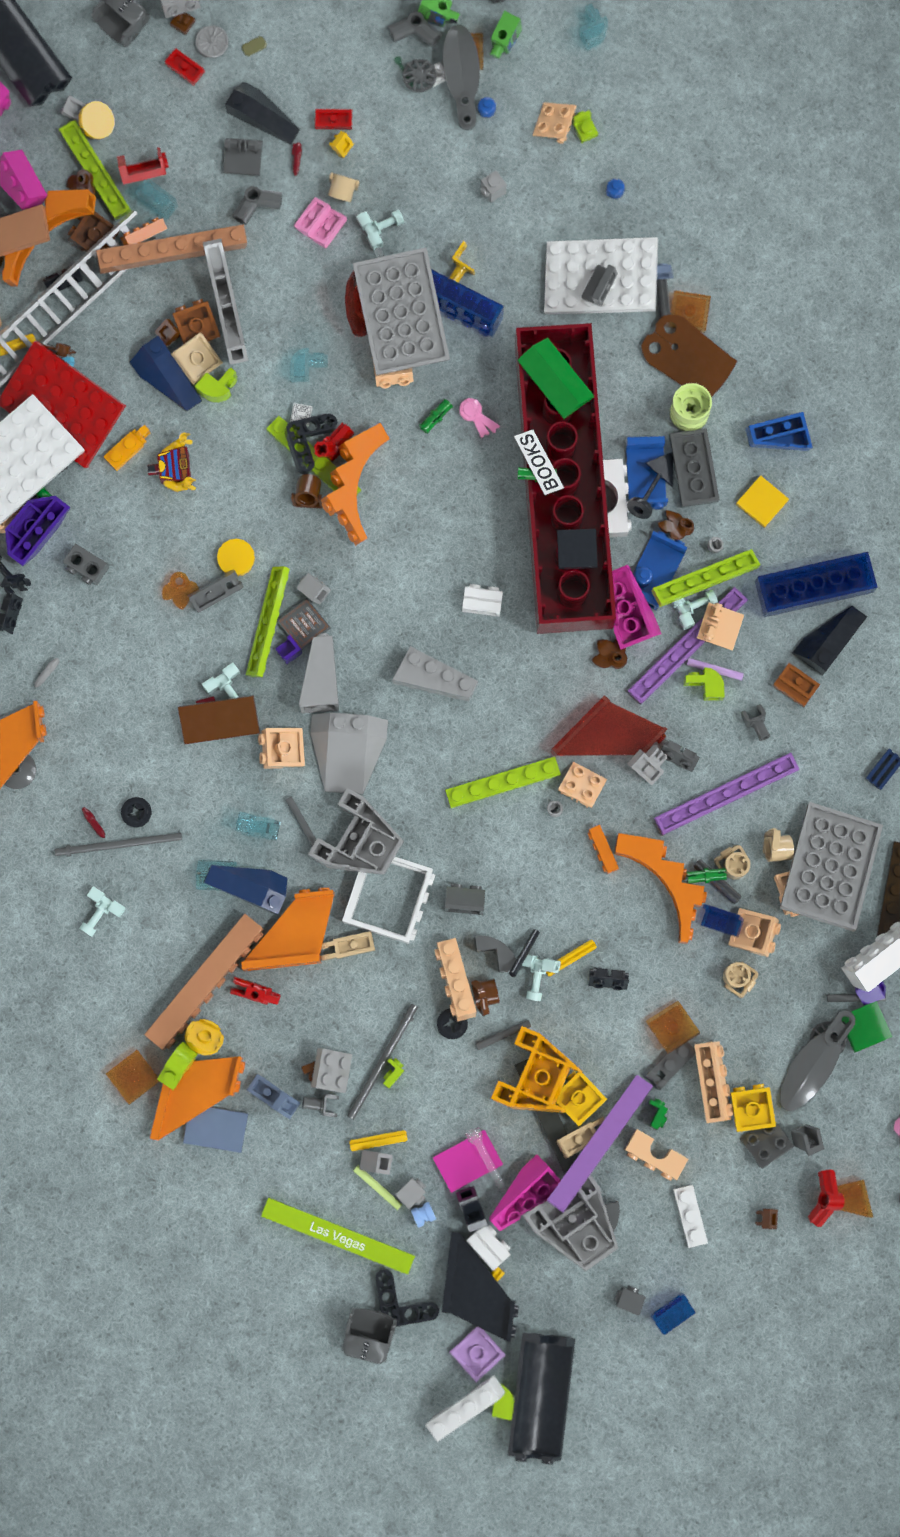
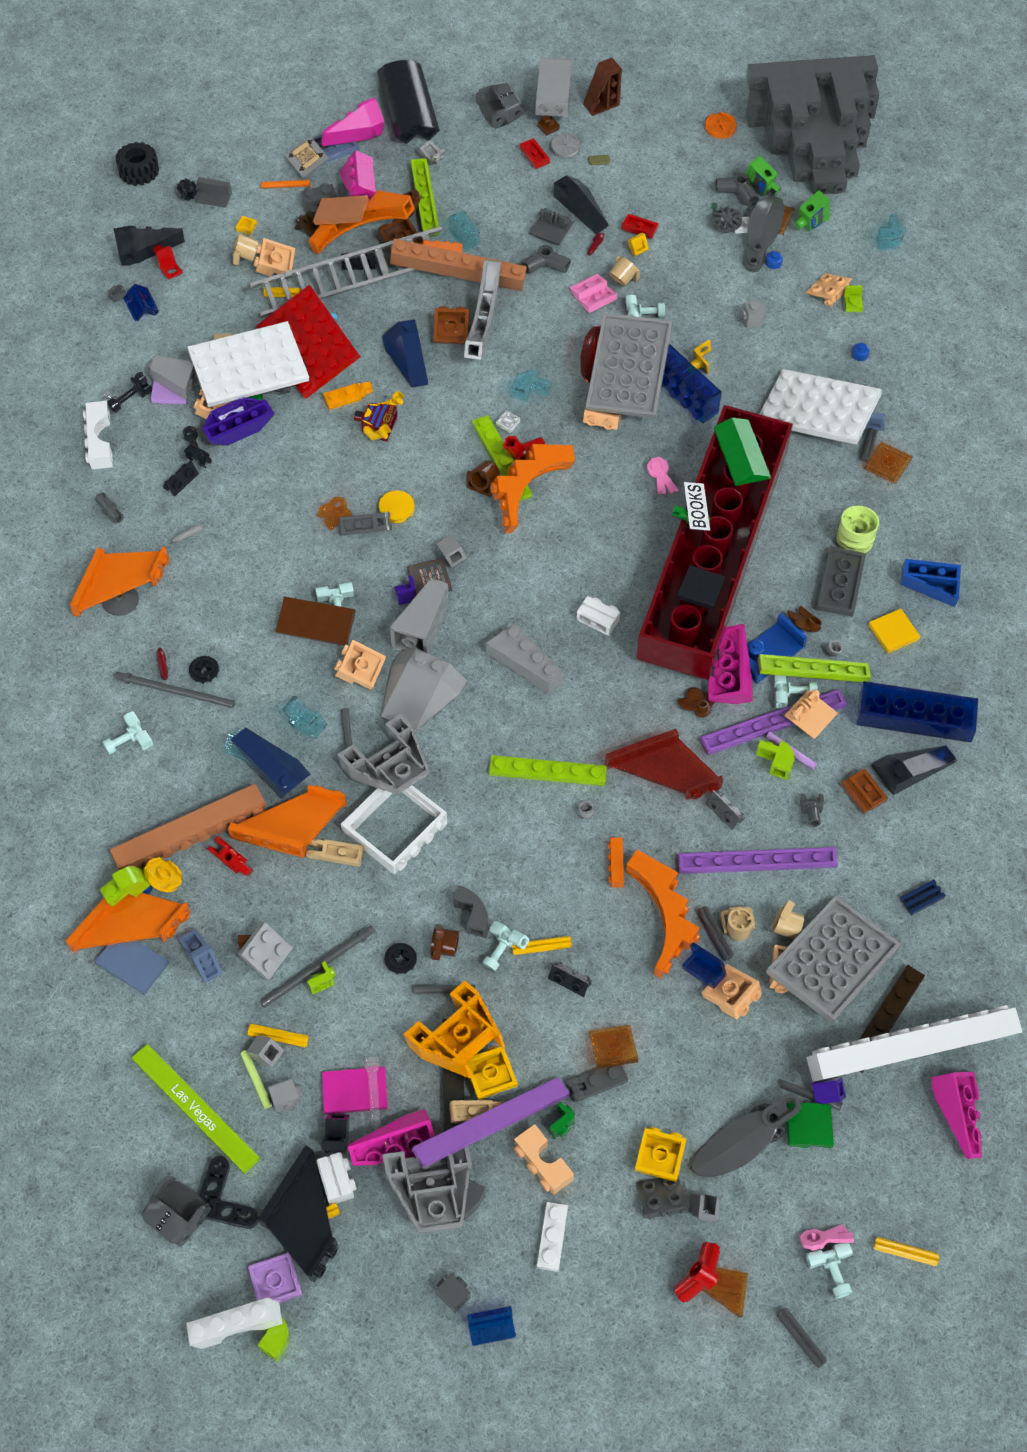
camera: 25 degrees right, 20 degrees down
(60, 349) = (330, 303): reddish brown plate -> none
(88, 561) = (264, 464): dark grey brick -> none
(96, 120) = (443, 163): yellow tile -> none
(133, 1077) = (80, 886): clear orange plate -> none
(142, 170) = (448, 203): red panel -> none
(167, 332) = (425, 323): reddish brown tile -> none
(196, 358) = (439, 348): tan tile -> none
(216, 390) = (445, 378): lime brick -> none
(267, 621) = (402, 559): lime plate -> none
(301, 435) = (501, 432): black beam -> none
(319, 1104) = (239, 979): dark grey piece -> none
(423, 1214) = (286, 1120): light blue wheel -> none
(435, 416) = (614, 466): green pin -> none
(456, 980) = (422, 917): light nougat brick -> none
(464, 899) = (463, 853): dark grey slope -> none
(524, 952) = (498, 919): black bar -> none
(541, 1397) = (317, 1351): black cylinder -> none
(582, 785) = (620, 799): light nougat hinge -> none
(600, 284) = (815, 407): dark grey panel -> none
(614, 475) = (750, 595): white arch -> none
(639, 475) = (795, 568): blue panel -> none
(649, 764) = (692, 801): light grey hinge -> none
(664, 469) = (777, 588): black piece -> none
(694, 361) = (878, 495): reddish brown piece -> none
(706, 875) = (706, 919): green pin -> none
(713, 1082) = (631, 1112): light nougat brick -> none
(739, 975) = (698, 1025): tan piece -> none
(769, 1218) = (632, 1271): reddish brown tile -> none

